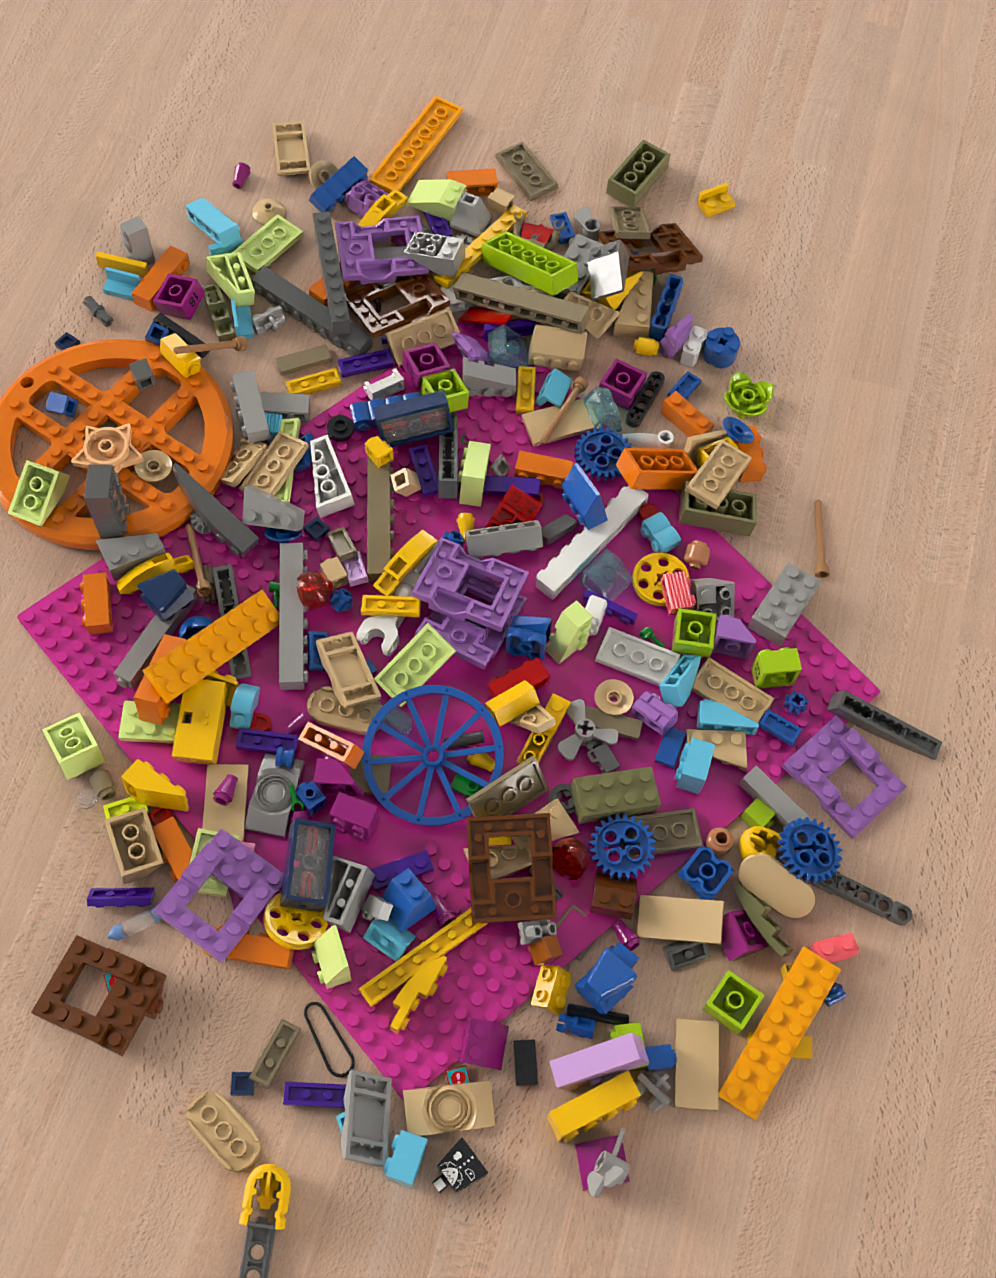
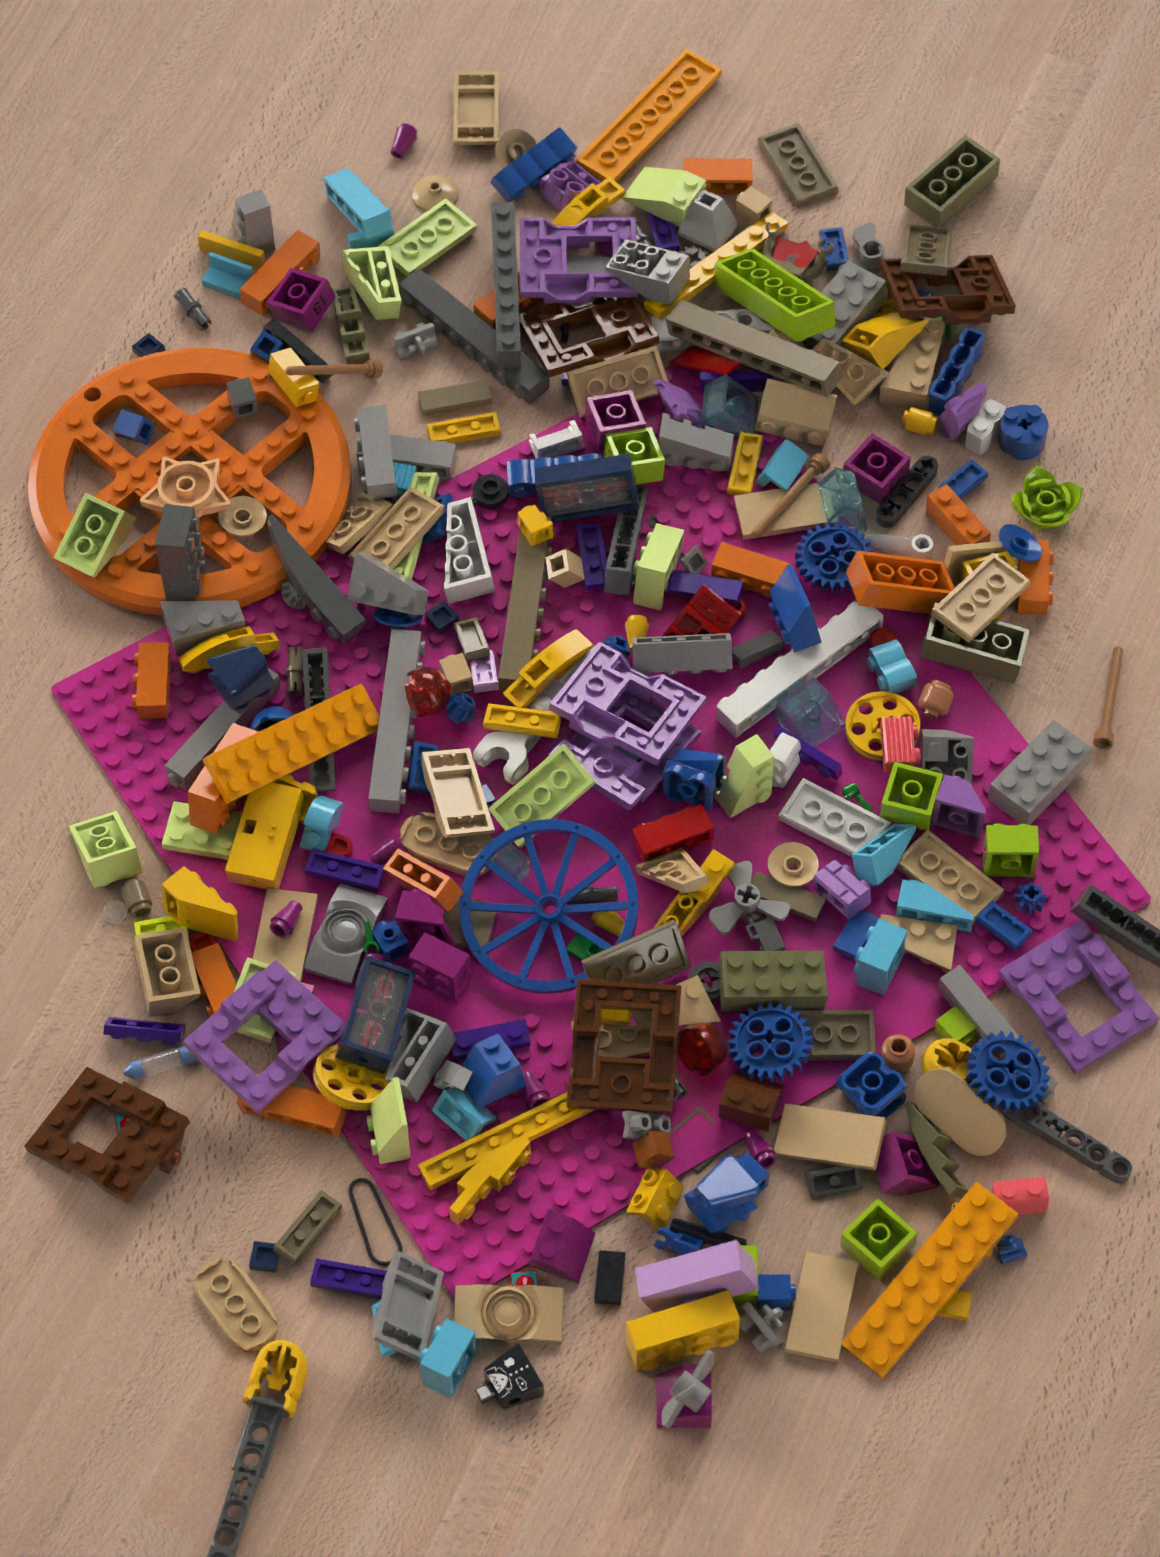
camera: 15 degrees right, 5 degrees down
(202, 587) = (287, 672): medium nougat piece -> none
(242, 321) = (381, 338): medium azure panel -> none
(274, 587) = (377, 685): green hand -> none
(285, 757) = (364, 889): blue wheel -> none
(365, 363) = (536, 409): dark purple plate -> none
(512, 703) = (658, 854): yellow brick -> none
(608, 269) = (877, 313): slope -> none
(715, 200) = (1056, 227): yellow bracket -> none

